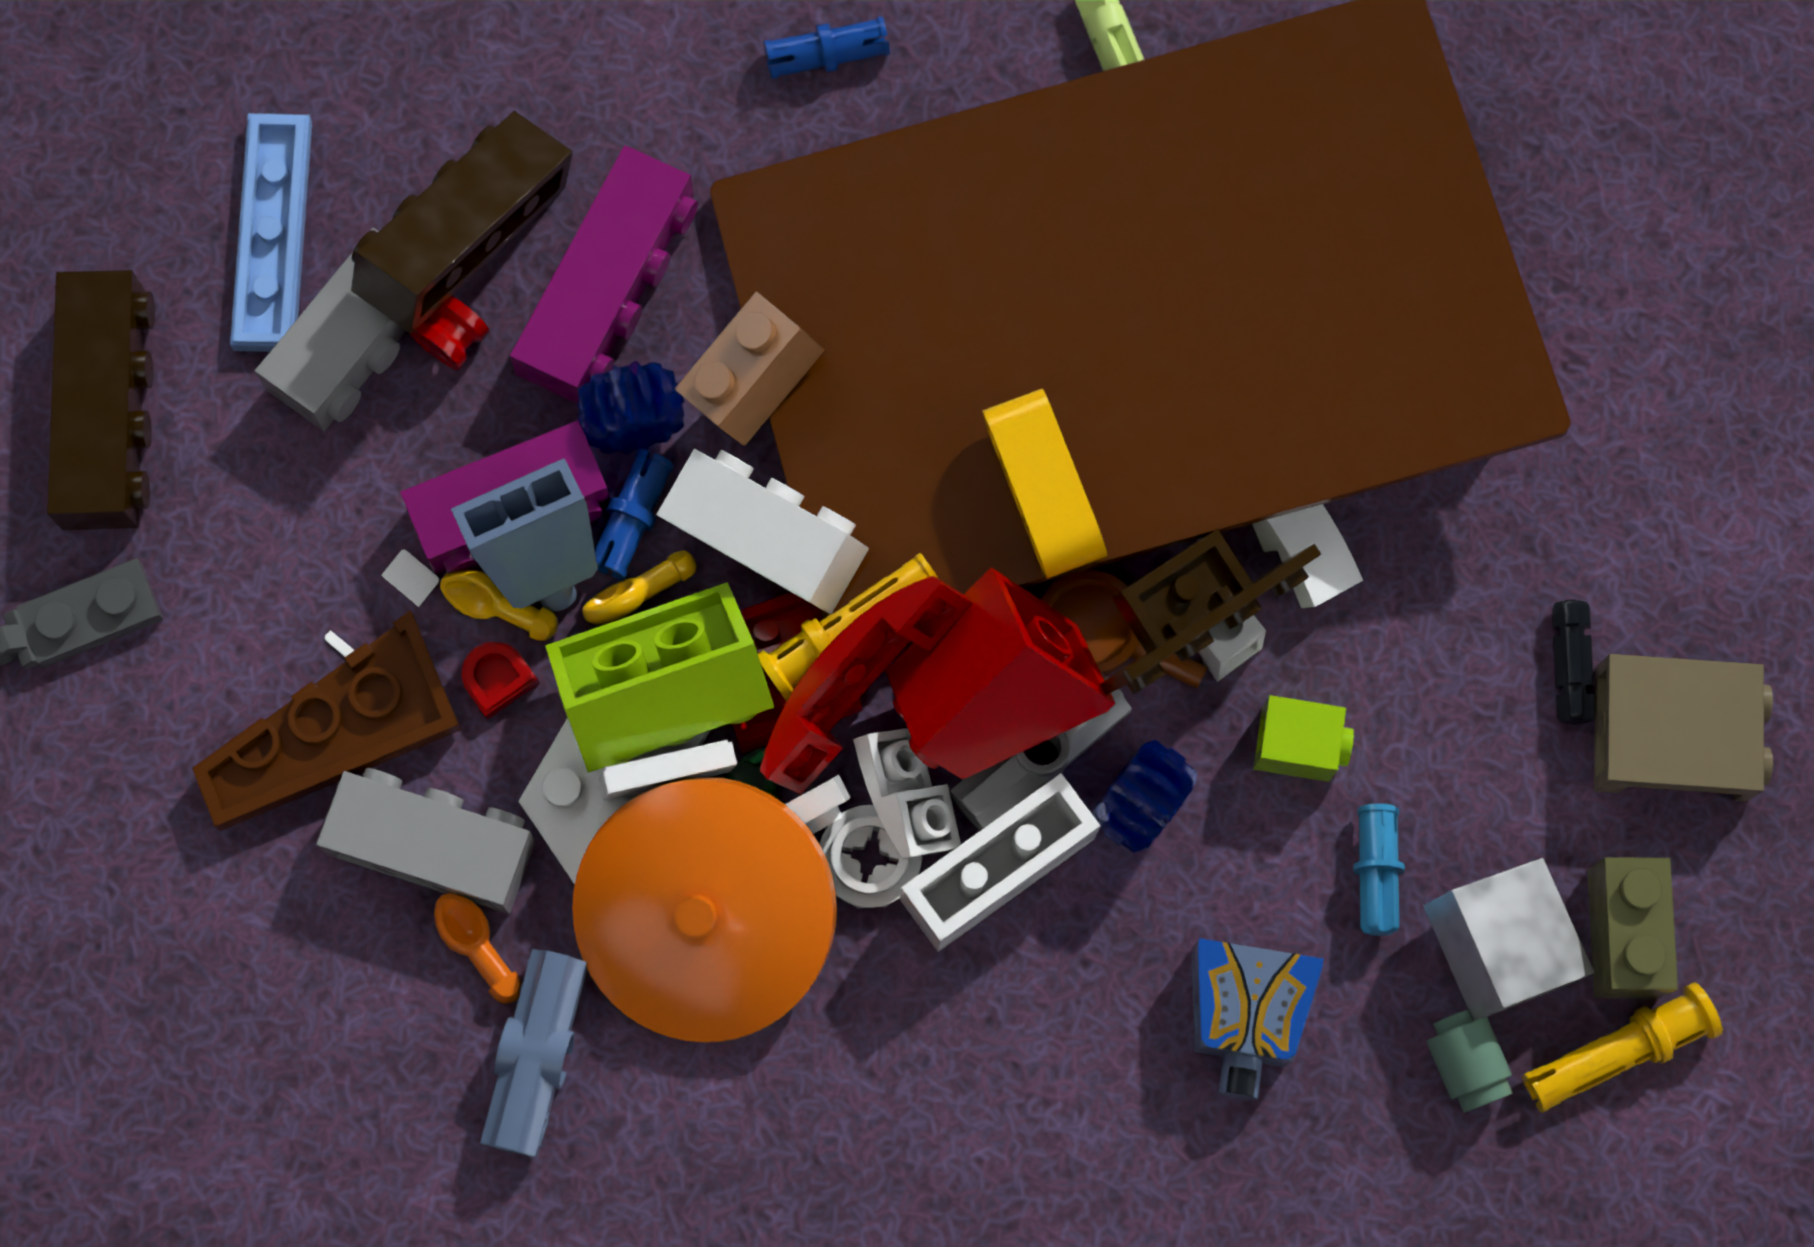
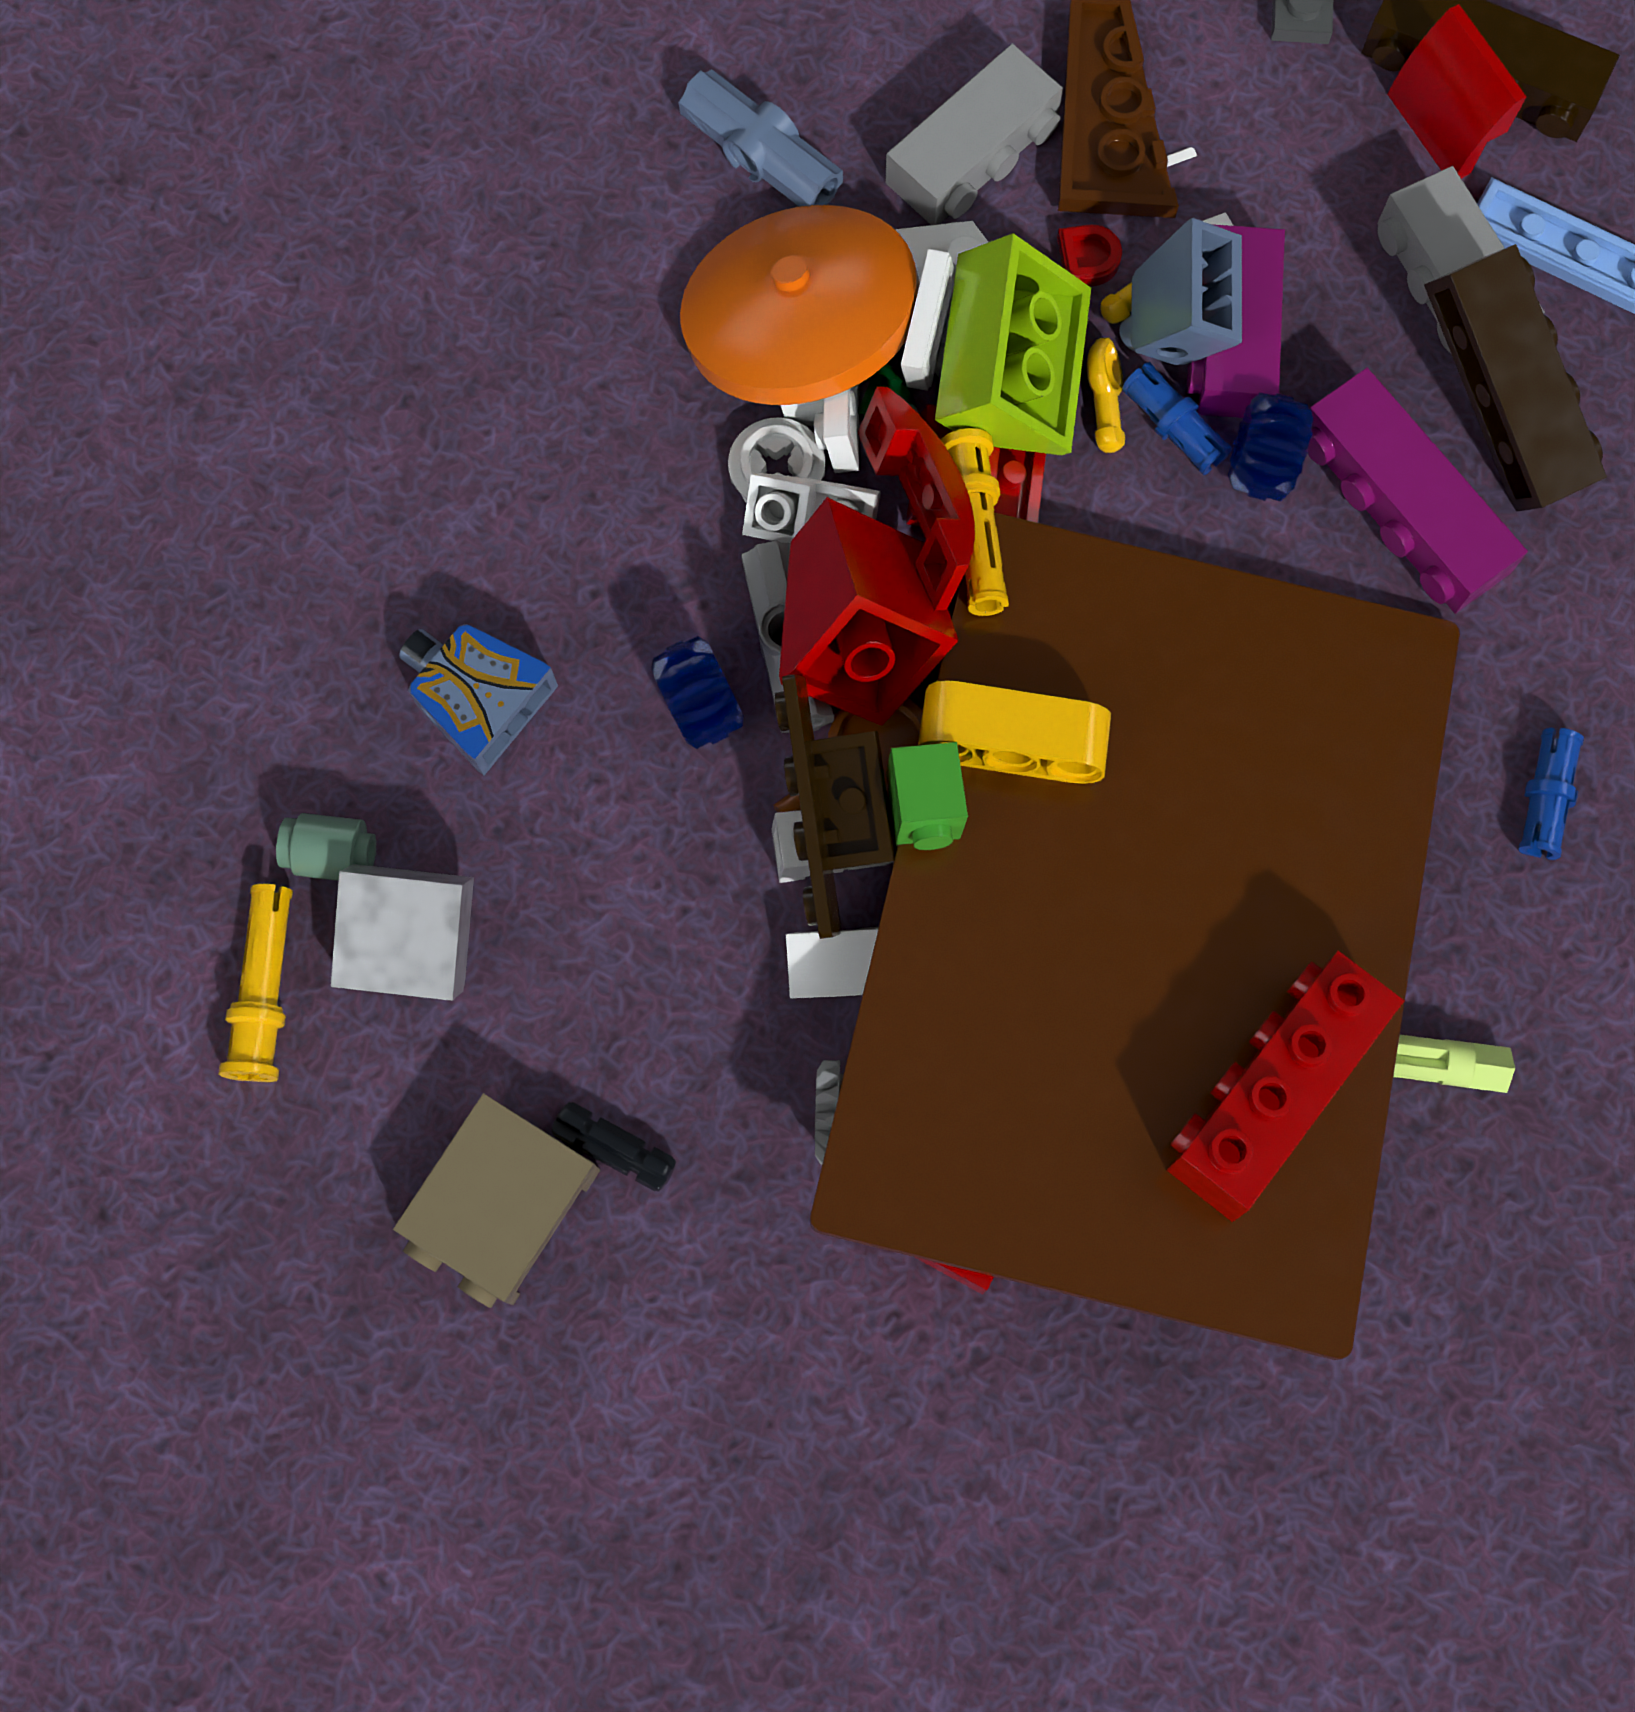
camera: 125 degrees right, 0 degrees up
(174, 399) = (1456, 93): none -> red slope
(451, 332) = (1417, 345): red wheel -> none
(467, 932) = (874, 143): orange piece -> none
(749, 369) = (1255, 551): medium nougat brick -> none
(765, 528) = (1099, 495): white brick -> none
(999, 862) = (707, 545): white brick -> none
(1150, 522) = (926, 795): none -> bright green brick
(1232, 121) = (1283, 1086): none -> red brick
(1302, 739) = (675, 859): lime brick -> none
(1379, 869) = (530, 866): dark azure axle -> none
(1445, 488) = (827, 1093): none -> light grey gear
(1632, 928) = (349, 1045): olive brick -> none

